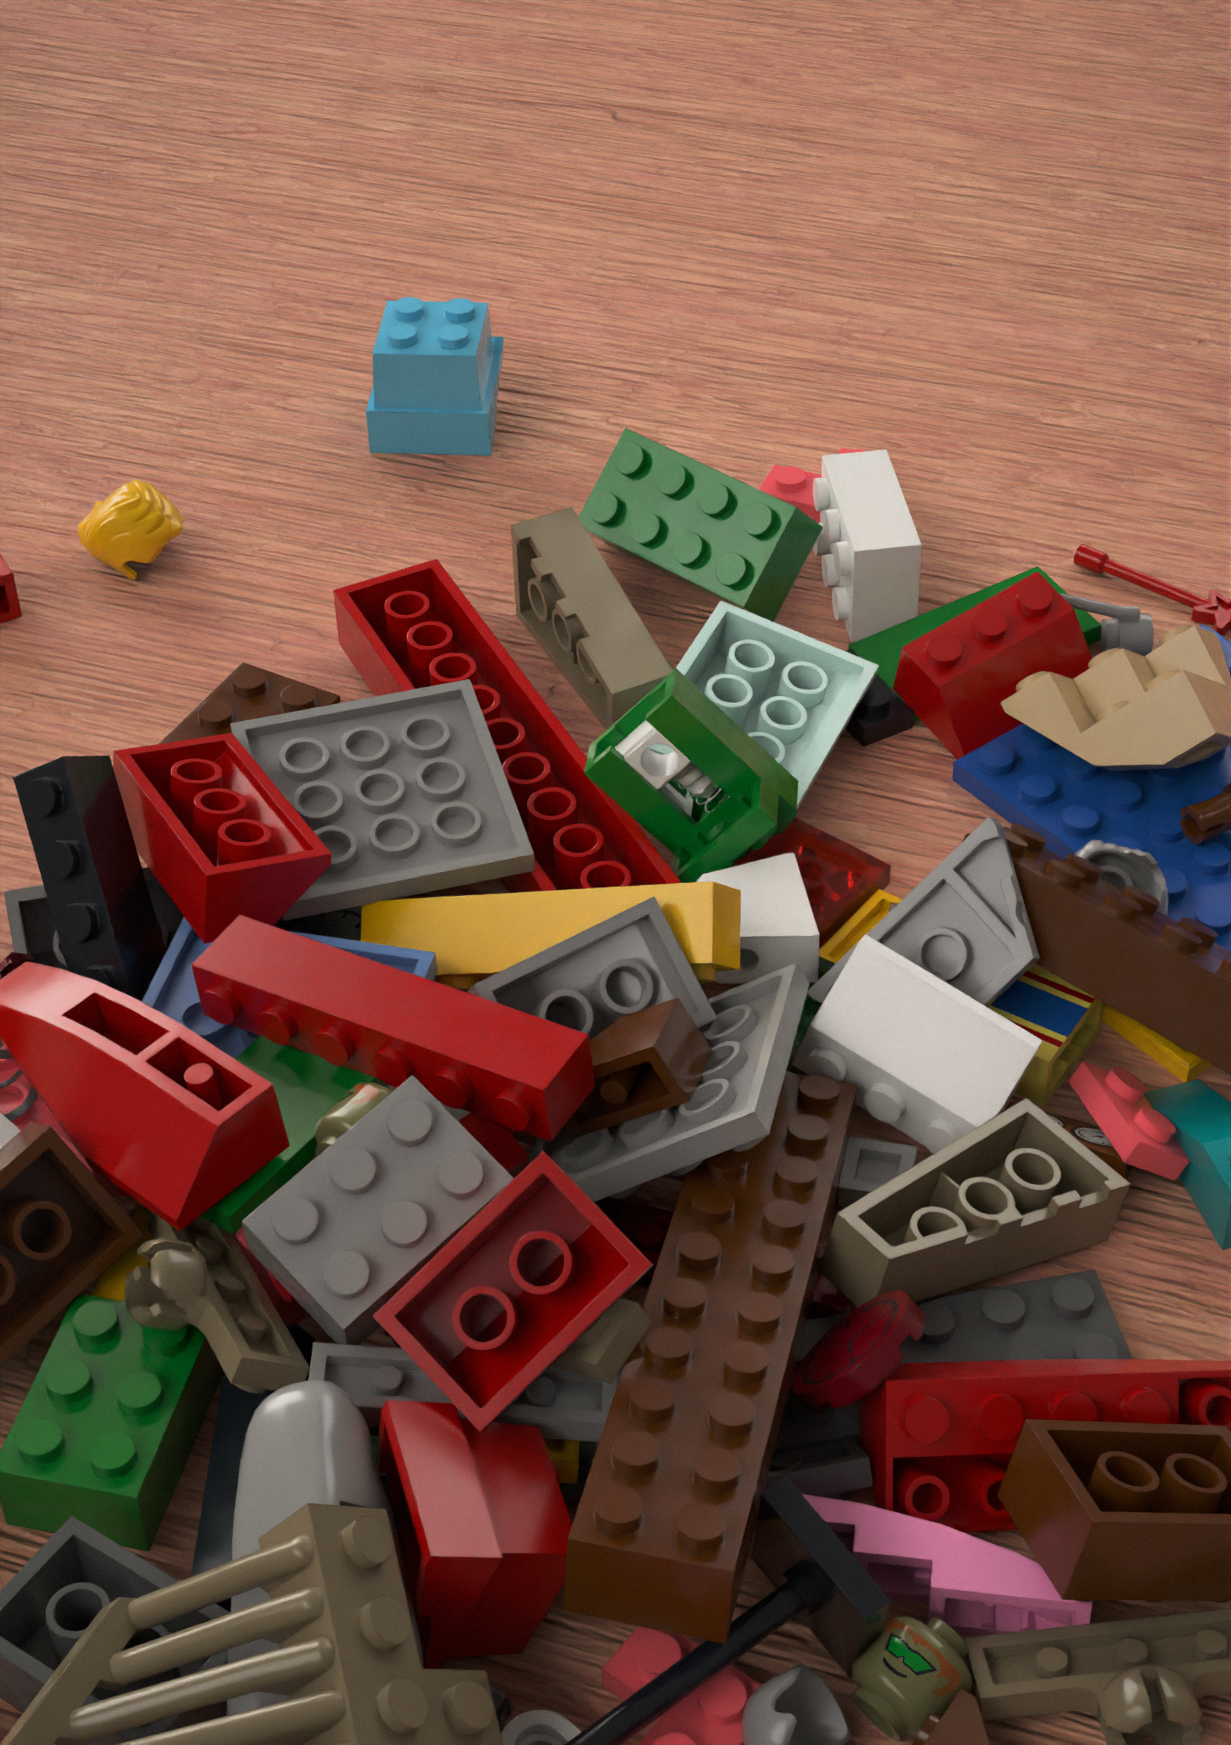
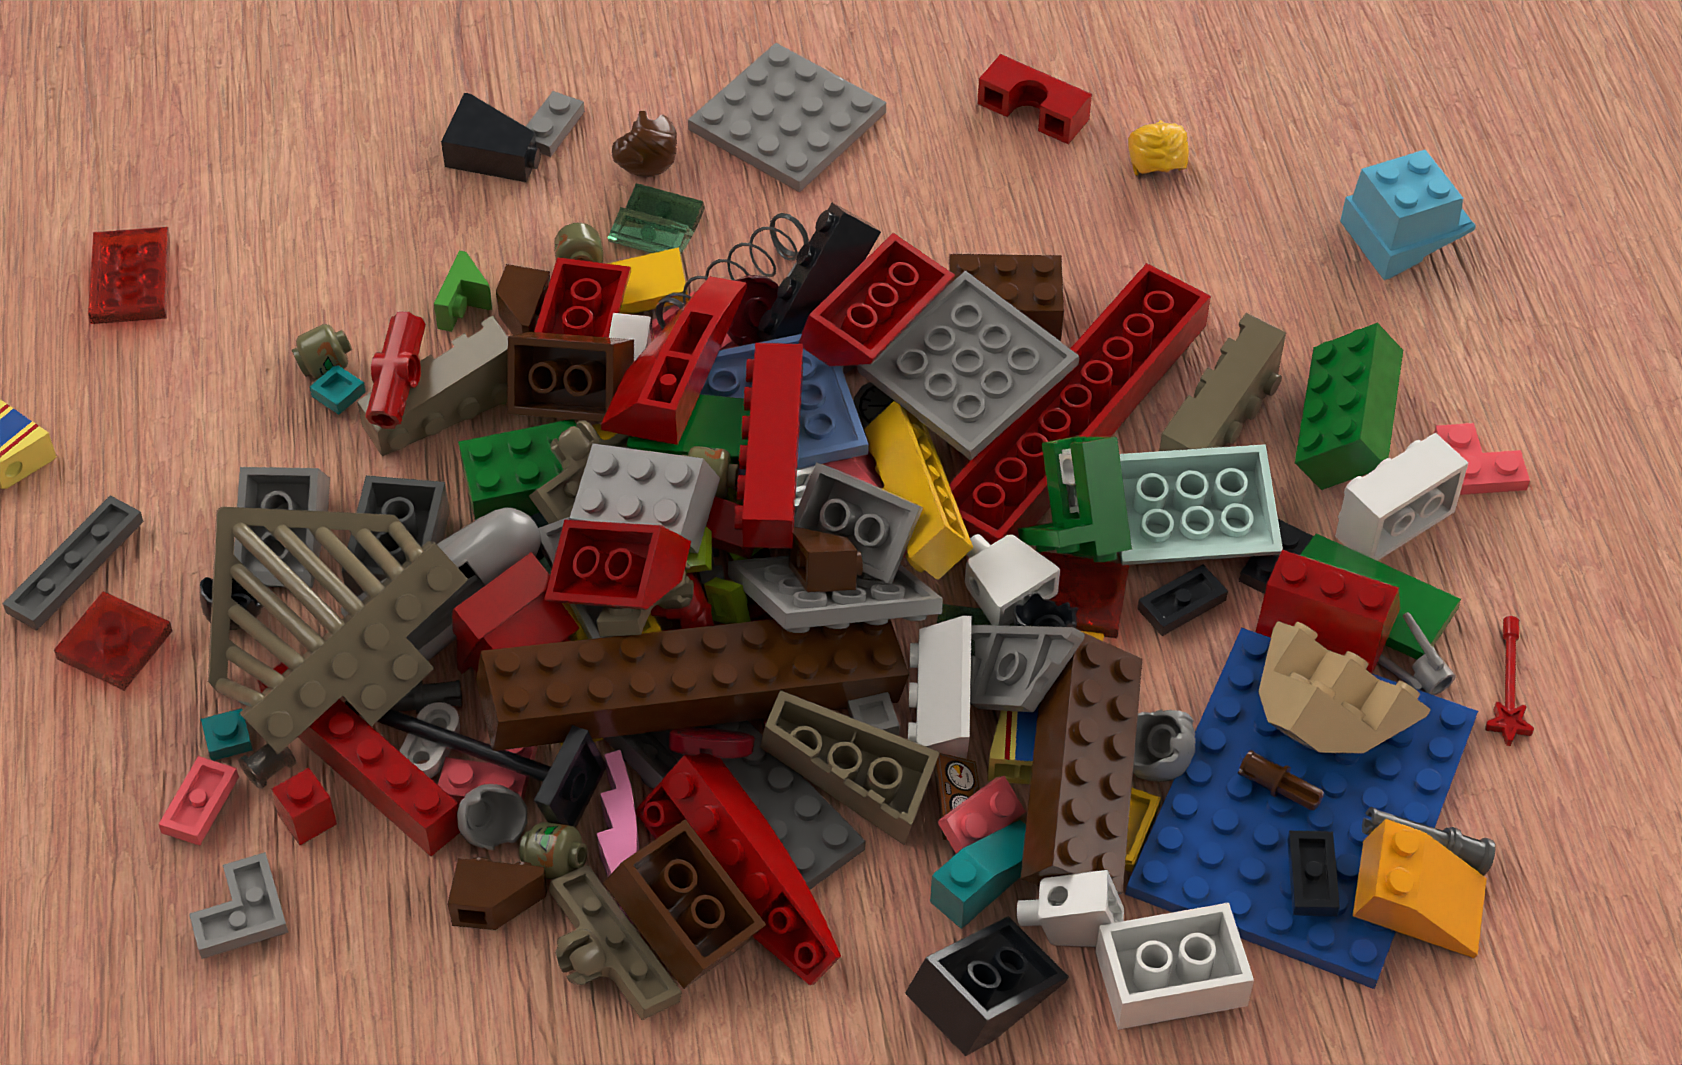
camera: 60 degrees right, 10 degrees up
(850, 912) = (1044, 613): none -> black hair
(874, 796) = (1182, 600): none -> black plate

